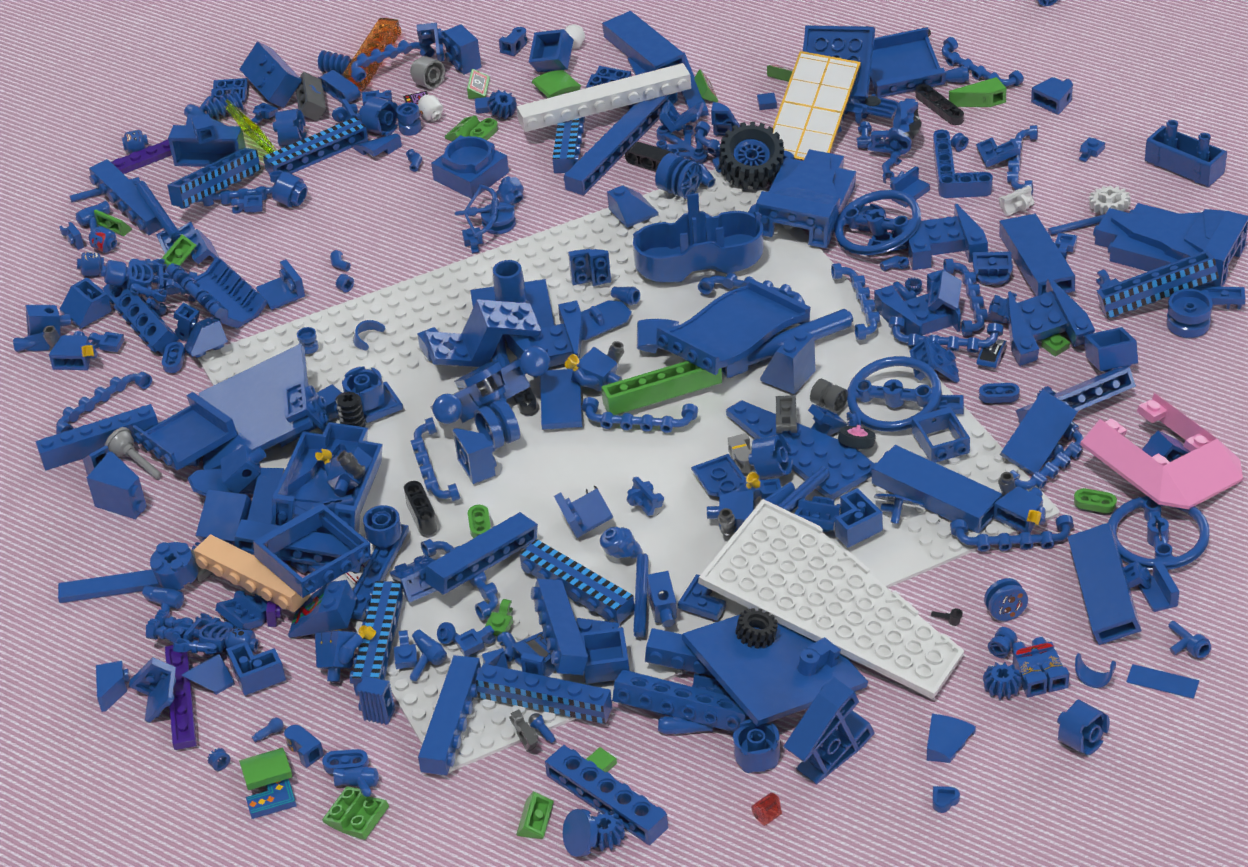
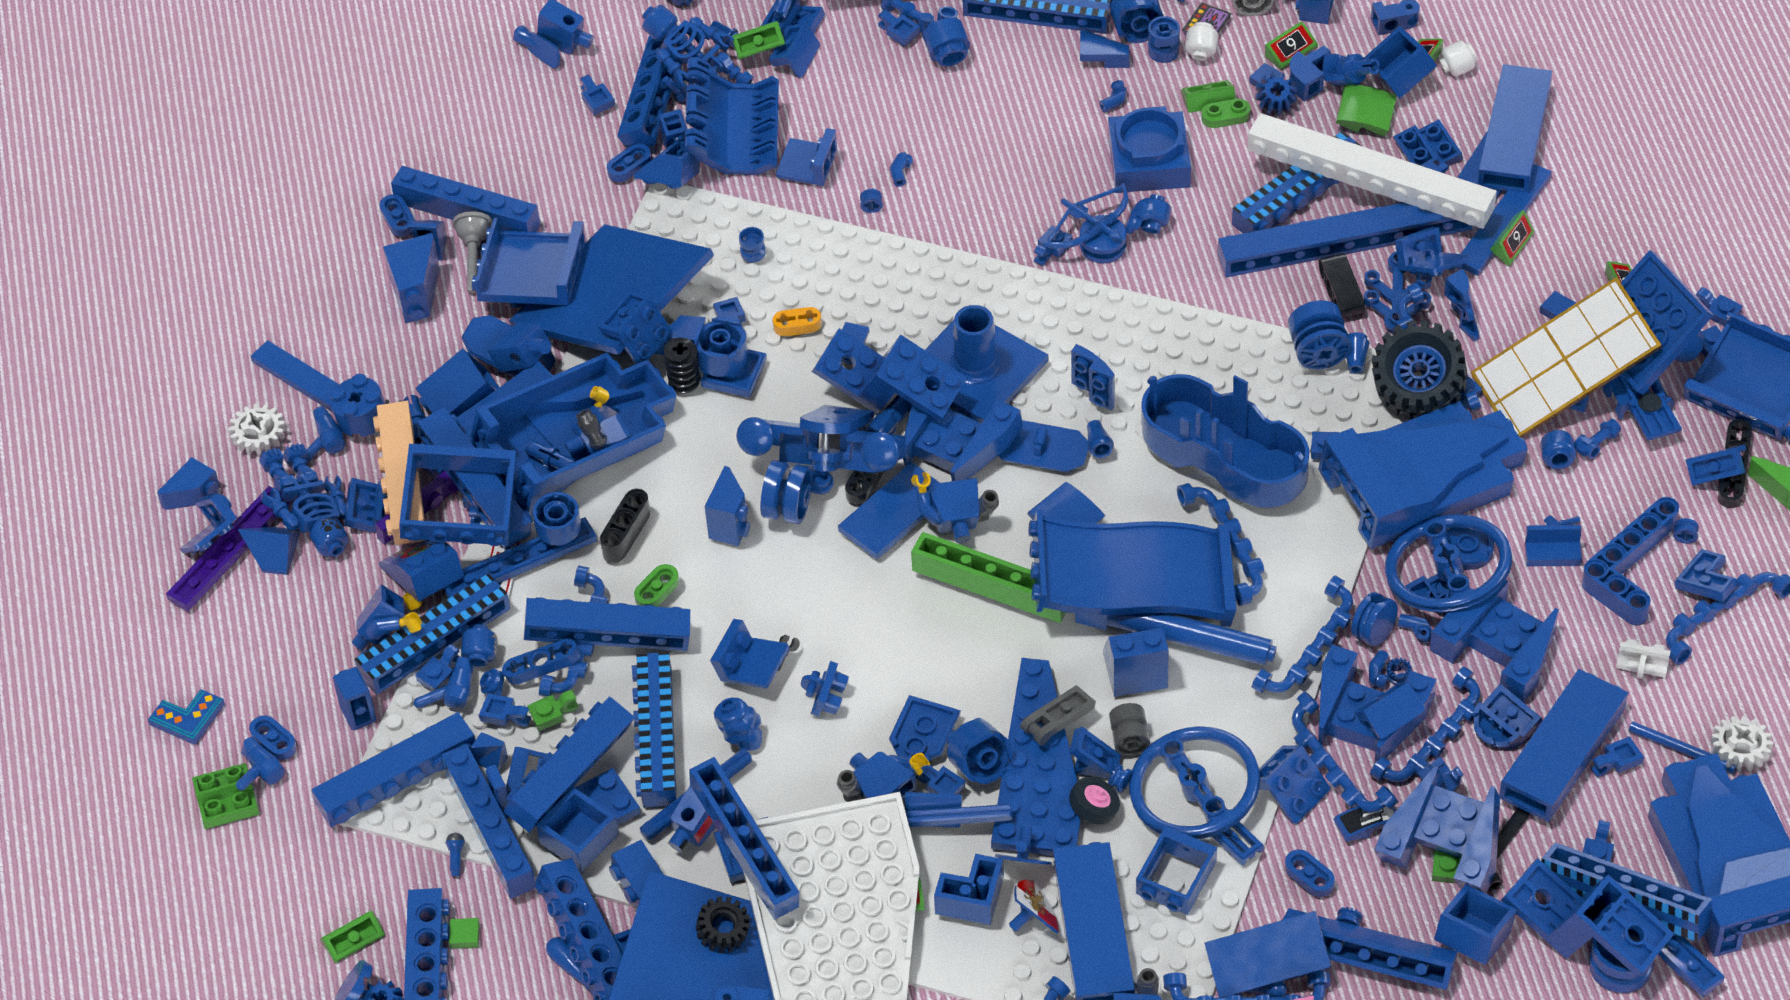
camera: 45 degrees right, 10 degrees up
(59, 472) = (396, 215): none -> blue plate
(69, 351) = (551, 80): blue torso -> none
(85, 303) = (621, 34): blue slope -> none
(115, 627) = (257, 429): none -> white gear
(141, 379) = (502, 156): blue bar -> none
(215, 756) = (184, 641): blue bush -> none
(255, 671) = (303, 574): blue brick -> none
(265, 768) = (205, 685): bright green slope -> none
(274, 726) = (263, 648): blue piece -> none
(304, 744) = (262, 690): blue leg -> none
(335, 377) = (730, 308): none -> blue plate
(363, 326) = (815, 269): blue helmet -> none
(383, 356) = (797, 321): none -> light orange beam
(414, 578) = (533, 585): blue bracket -> none
(414, 618) = (479, 645): none -> blue head
(427, 470) = (682, 489): blue bar -> none
(465, 591) = (555, 649): none -> blue beam
(502, 83) = (1307, 72): none -> blue brick
(507, 640) = (529, 739): blue arm -> none
(525, 733) = (431, 846): dark grey plate -> none
(532, 70) = (1347, 70): none -> blue piece
(629, 206) = (1239, 332): blue slope -> none
(646, 422) = (933, 606): blue bar -> none
(720, 571) = (744, 838): none -> blue brick
(739, 451) = (974, 708): light grey leg -> none
(819, 511) = (950, 849): blue slope -> none
(854, 150) = (1558, 449): none -> blue head
(856, 477) = (1023, 848): none -> blue shield
(875, 269) = (1374, 619): none -> blue head
(886, 165) = (1590, 495): blue arm -> none
(901, 135) = (1646, 462): blue hips -> none
(937, 105) = (1716, 465): none -> blue panel
(1159, 303) = (1600, 913): none -> blue bracket

